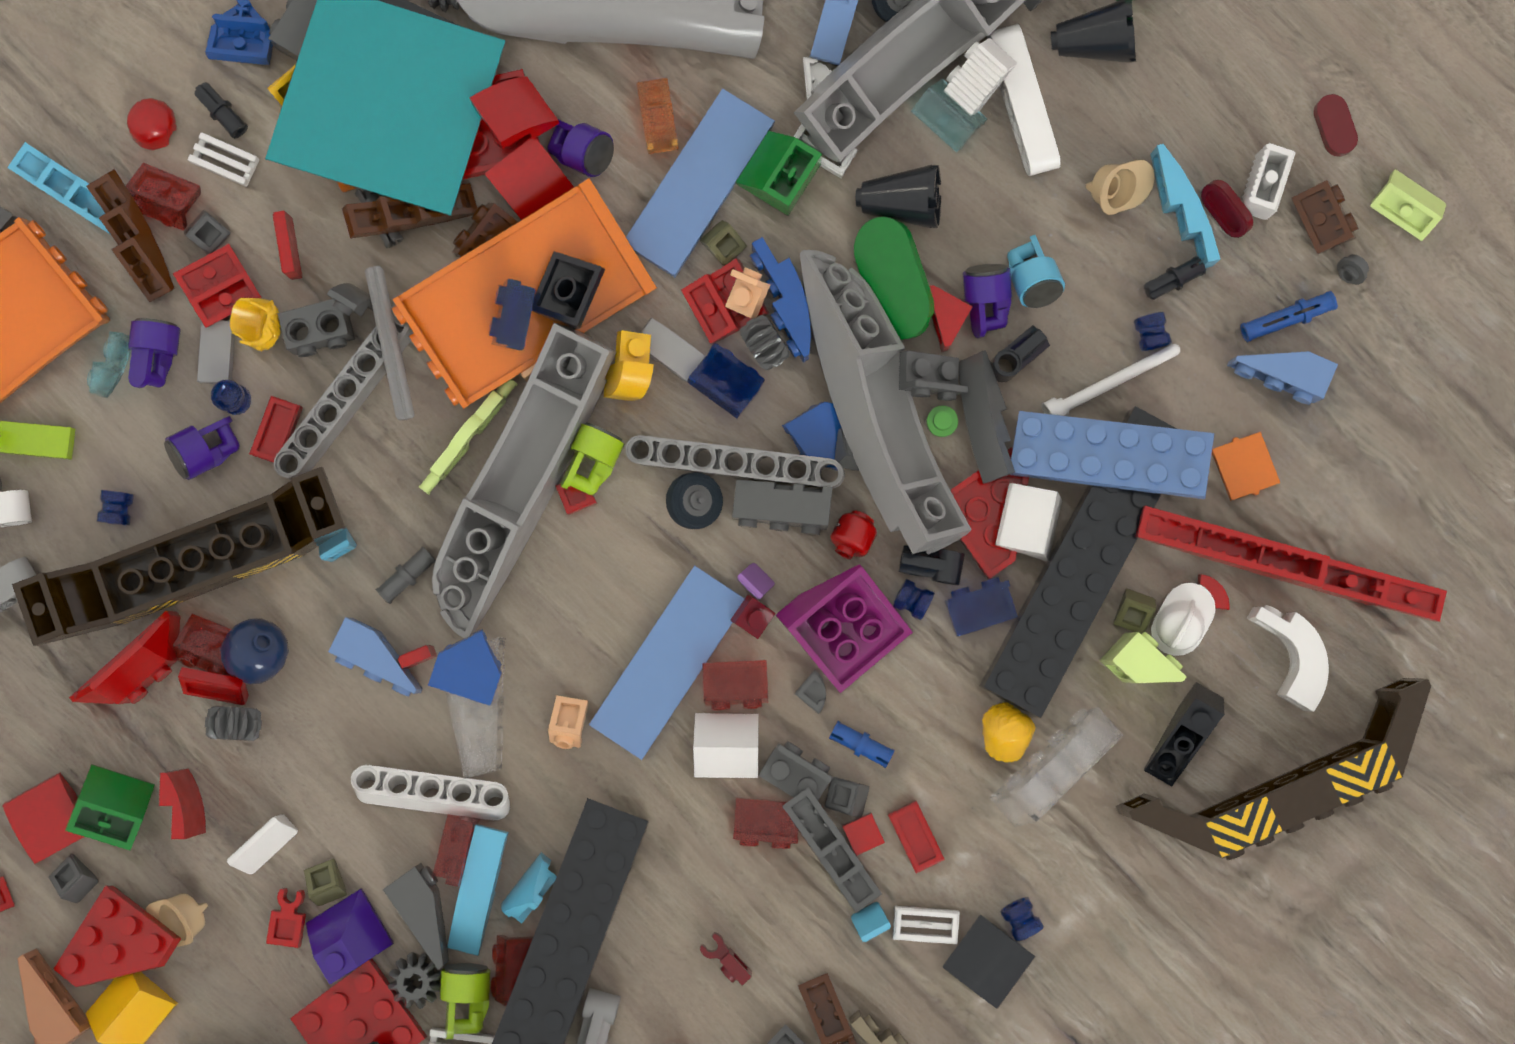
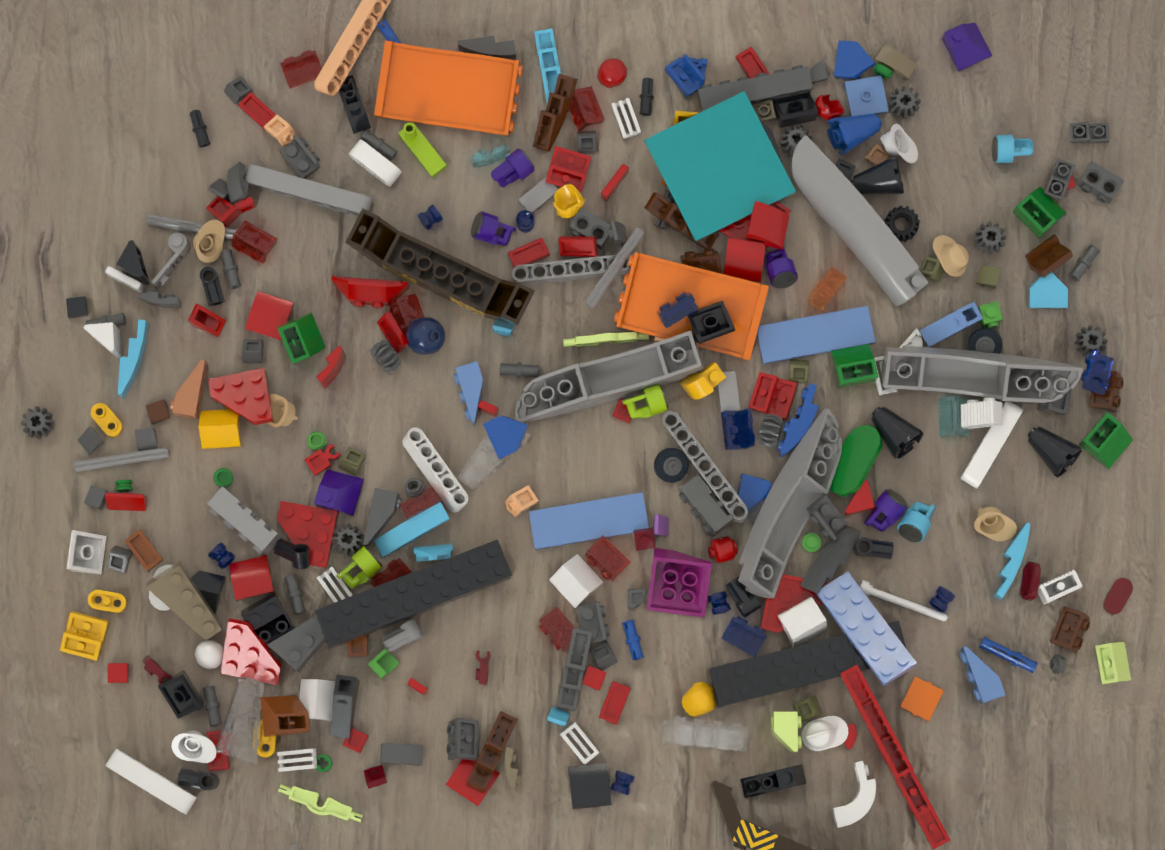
camera: 45 degrees right, 5 degrees down
(258, 904) = (316, 441): none -> bright green plate
(263, 844) = (344, 418): white slope -> none
(322, 362) = (578, 246): none -> red tile
(421, 837) = (410, 484): none -> dark grey plate
(747, 293) = (785, 402): light nougat bracket -> none
(1174, 278) = (975, 587): black axle -> none

